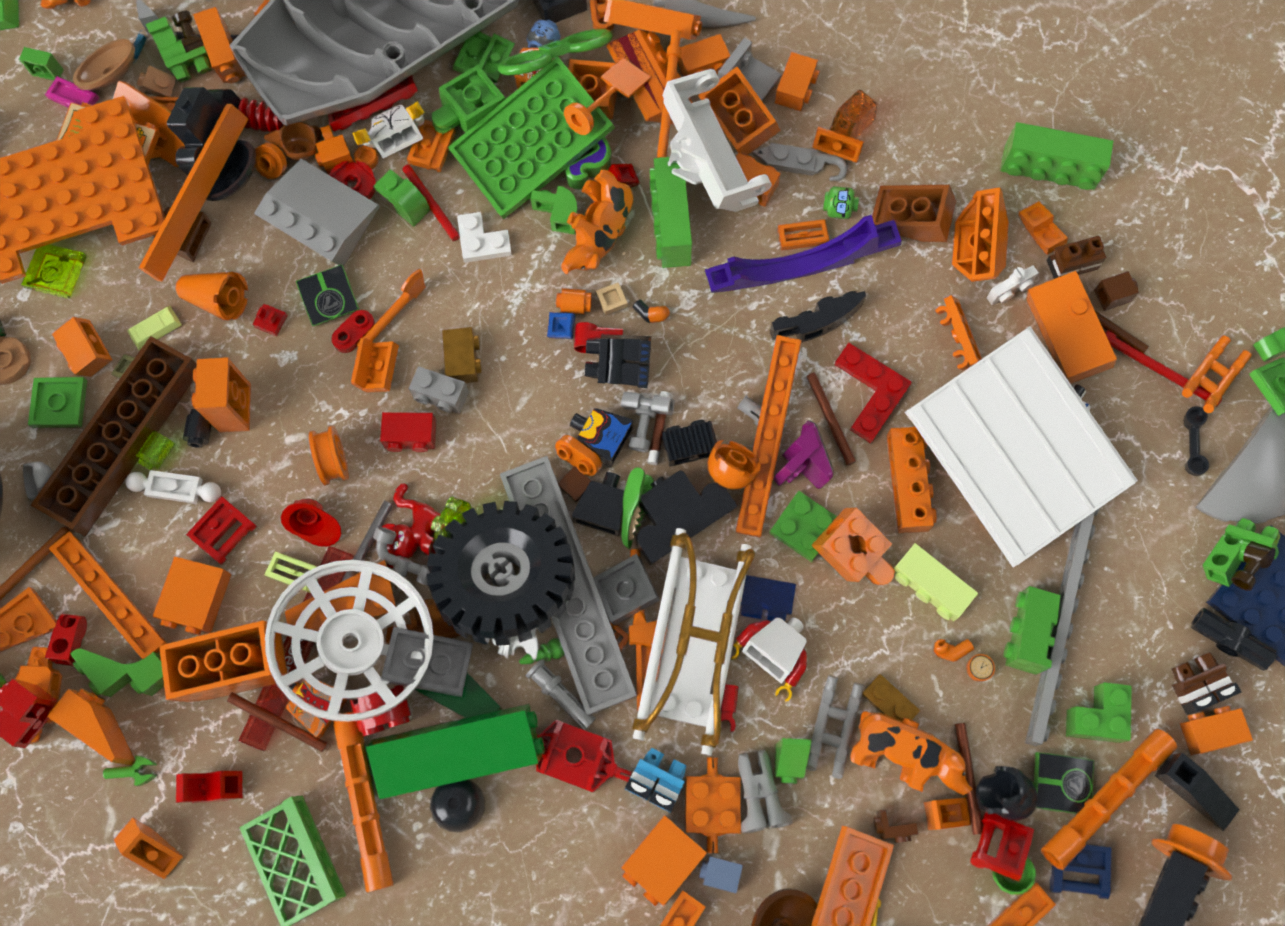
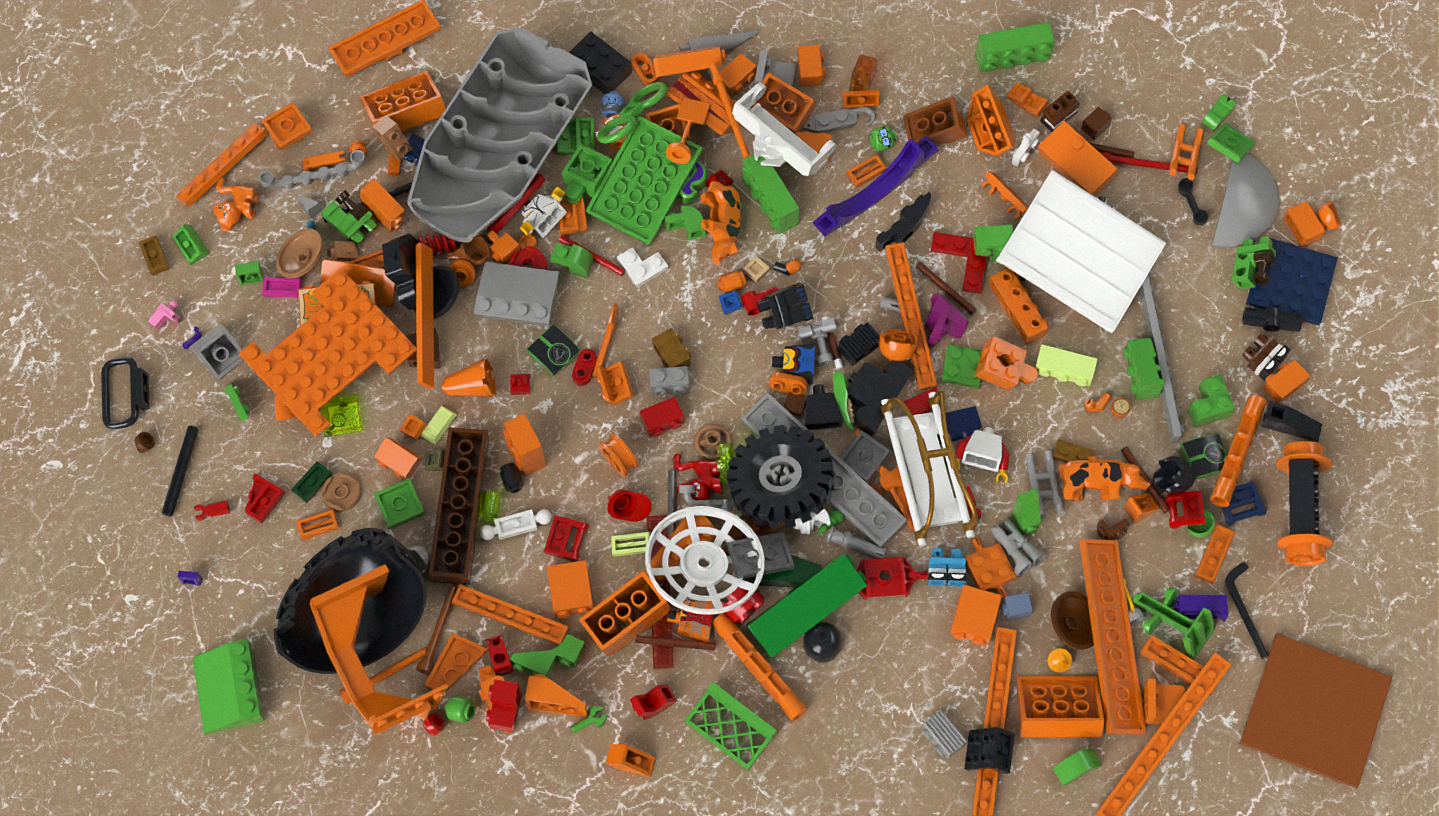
camera: 25 degrees left, 5 degrees down
(121, 318) = (413, 427): none -> orange plate
(452, 479) = (711, 435): none -> medium nougat piece
(724, 551) = (919, 403): none -> red tile
(913, 382) = (991, 240): none -> bright green brick

